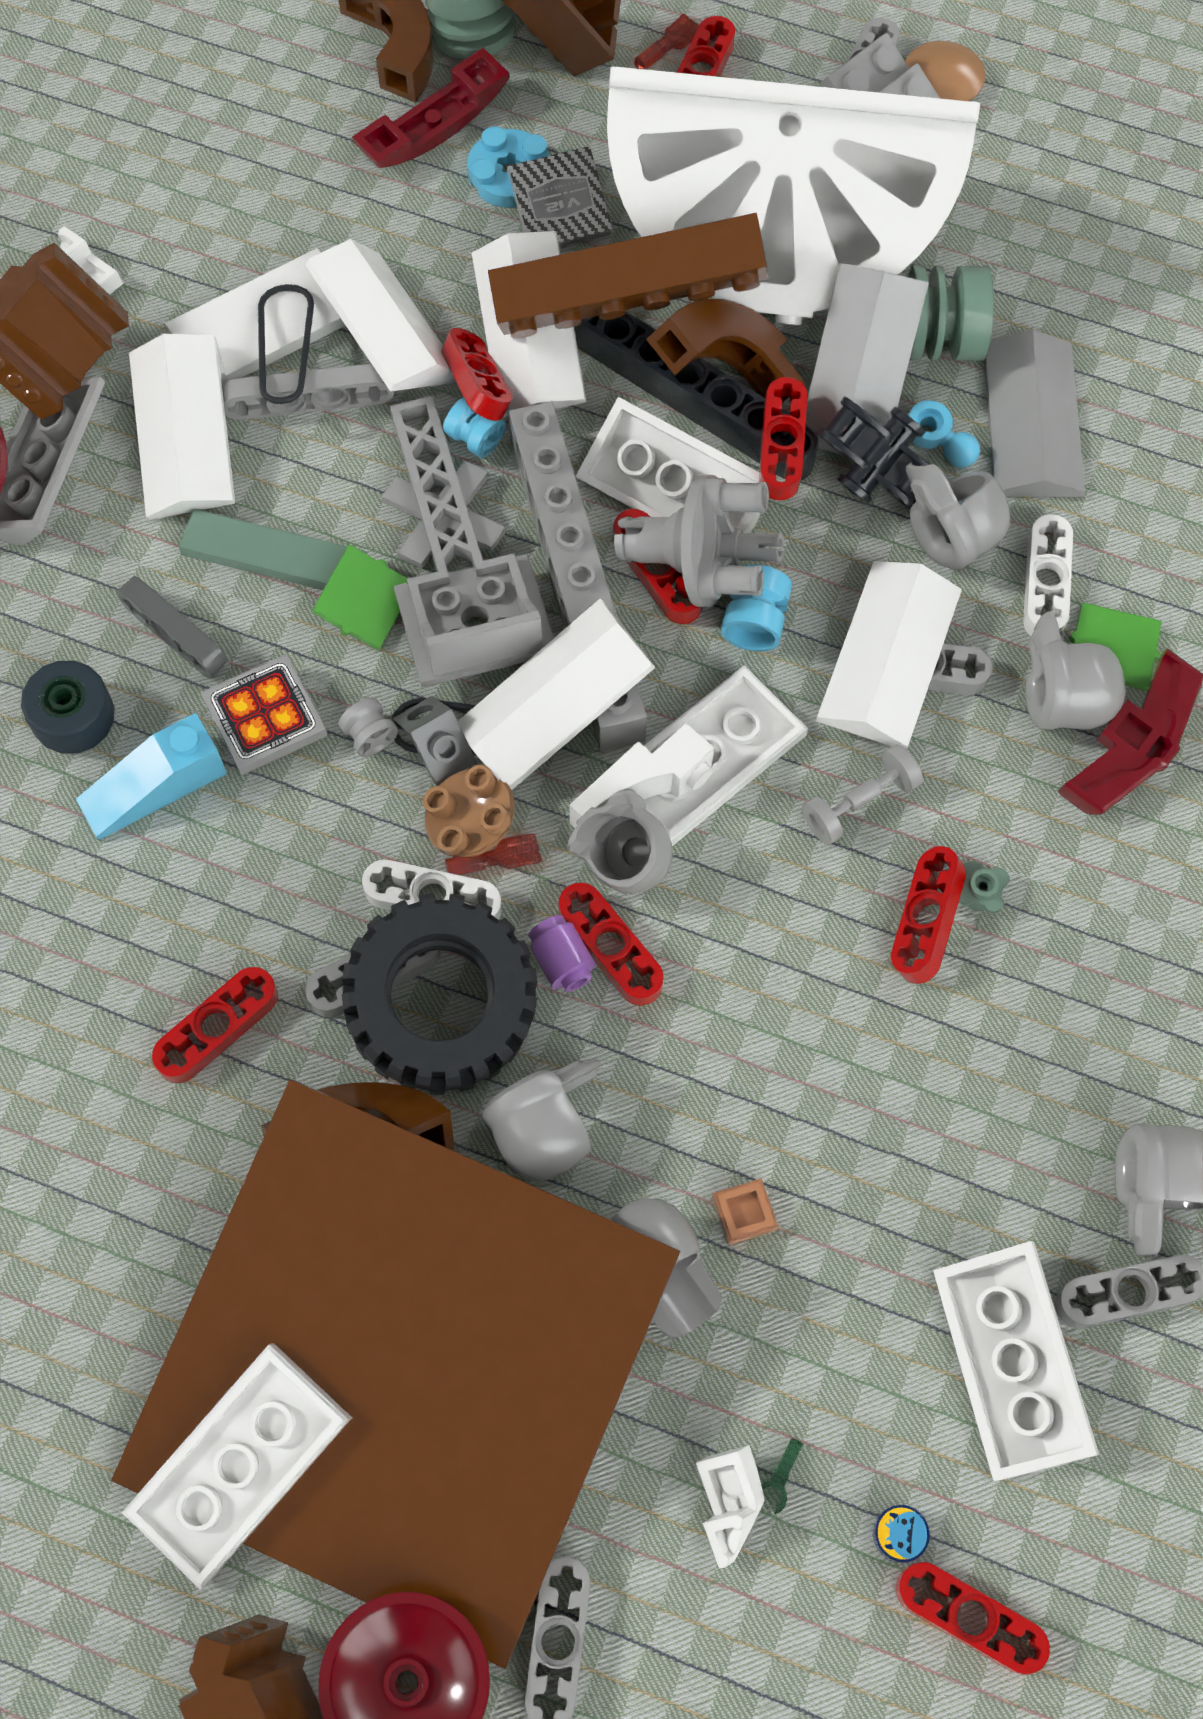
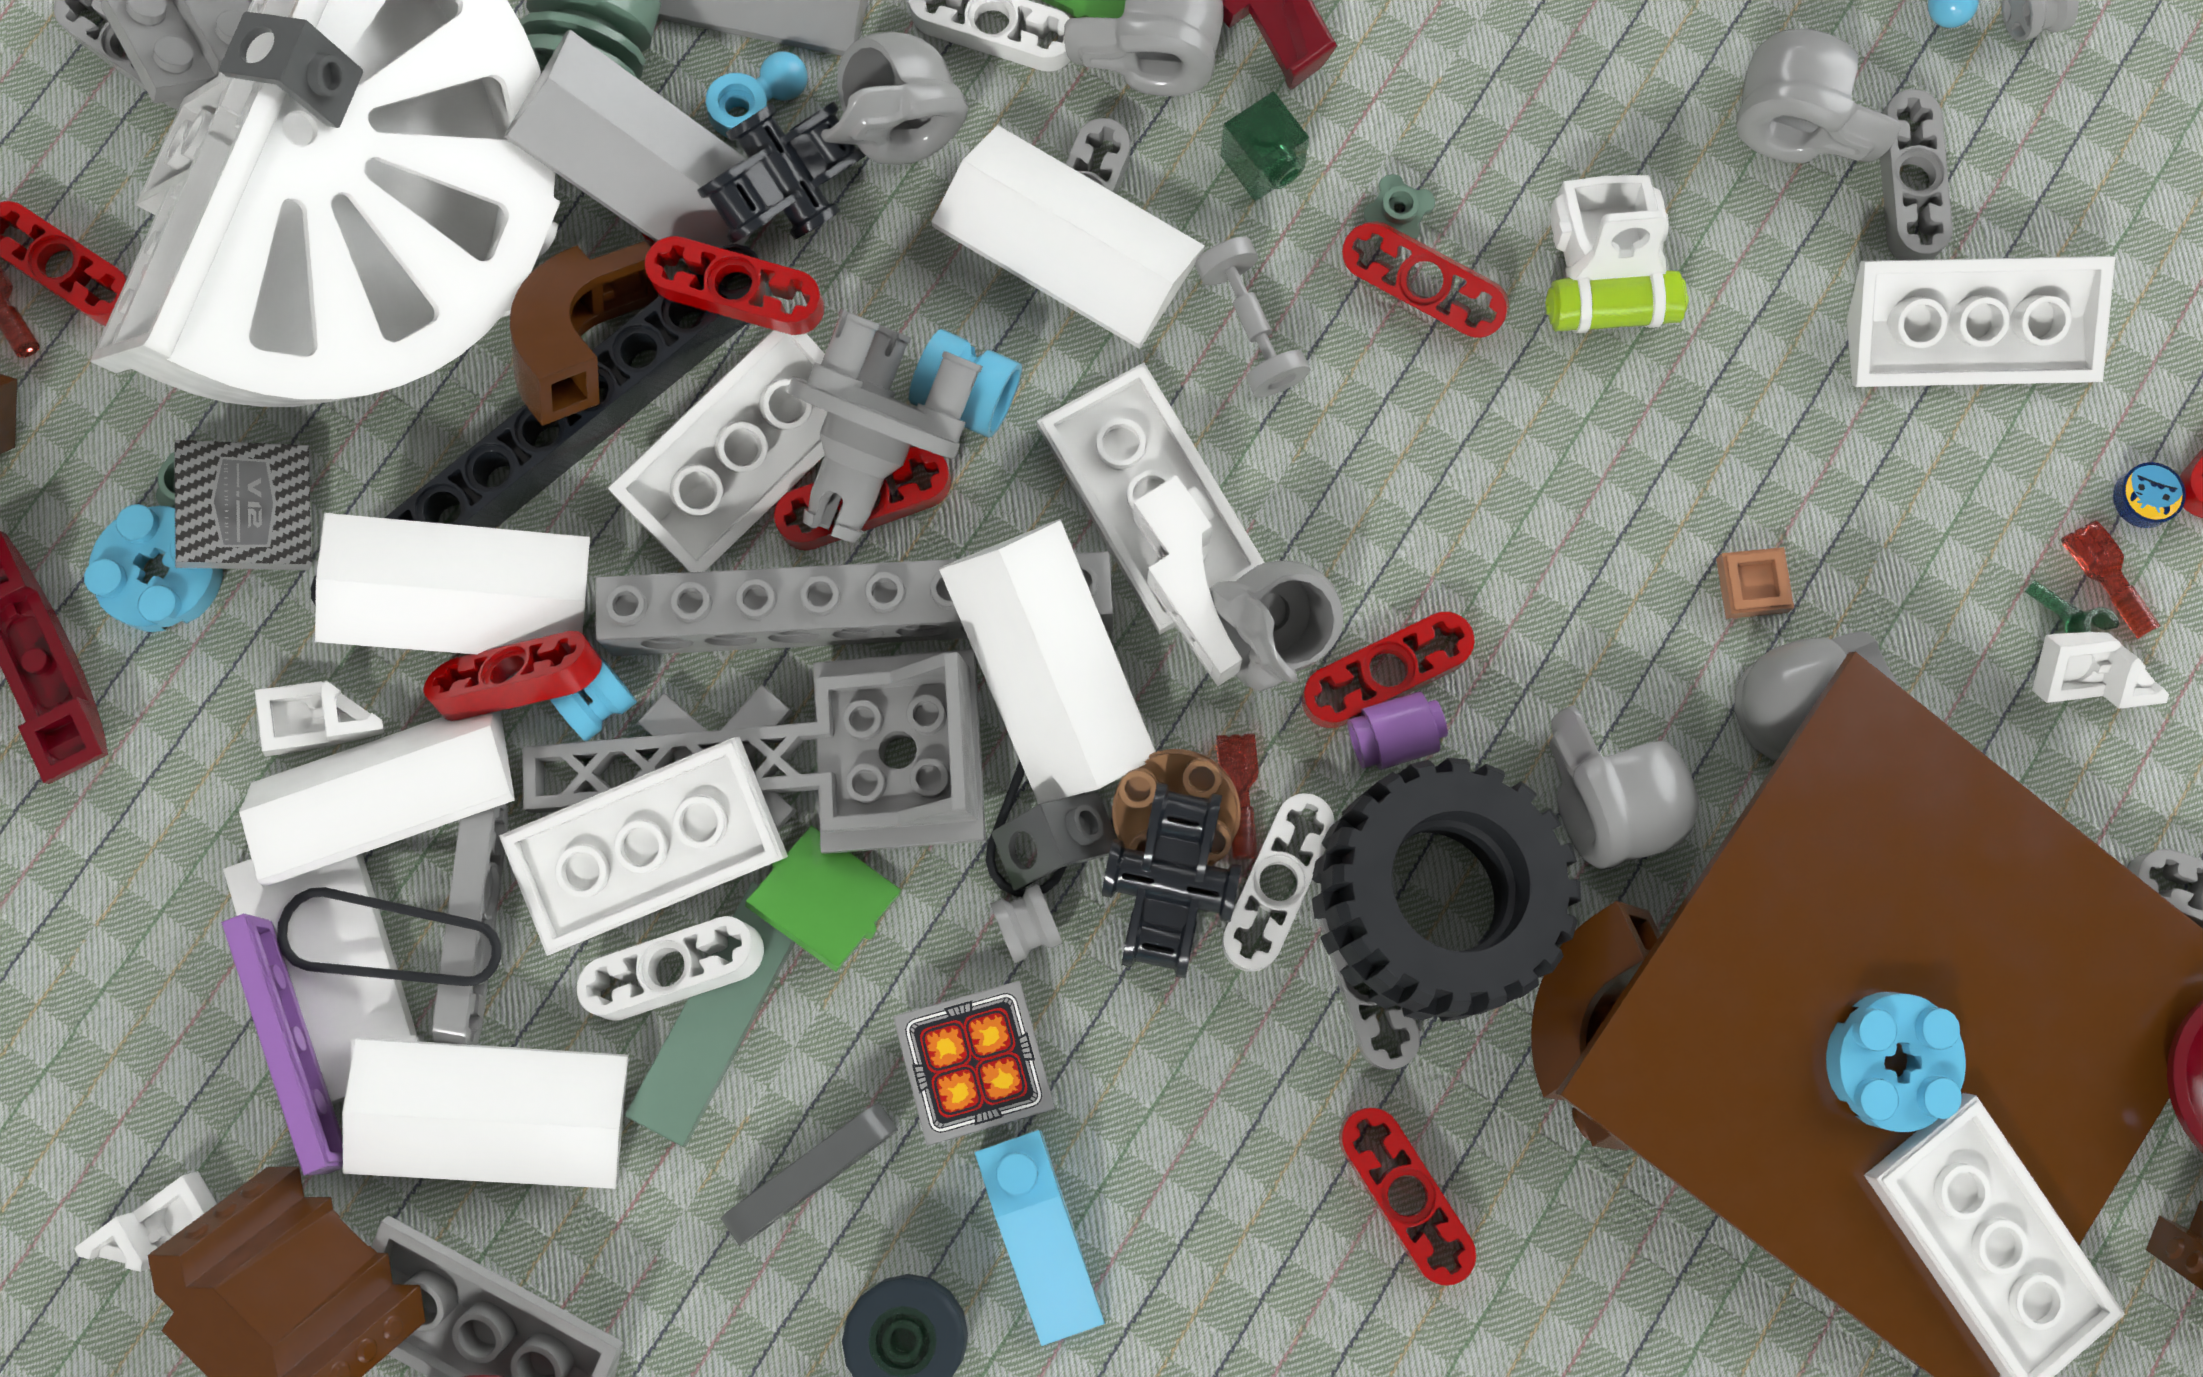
camera: 75 degrees left, 10 degrees up
(209, 297) = (286, 1044): none -> medium lavender tile
(296, 528) = (642, 961): none -> white beam
(334, 1331) = (1933, 1071): none -> medium azure plate
(377, 479) = (643, 845): none -> white tile
(415, 811) = (1171, 880): none -> black axle
(427, 273) = (310, 718): none -> white slope
(629, 275) = (451, 417): reddish brown brick -> none
(825, 107) = (299, 63): none -> dark grey bracket
(831, 1501) = (2102, 562): none -> clear red piece
(985, 1048) = (1612, 257): none -> white piece
(1001, 775) = (1264, 146): none -> clear green brick

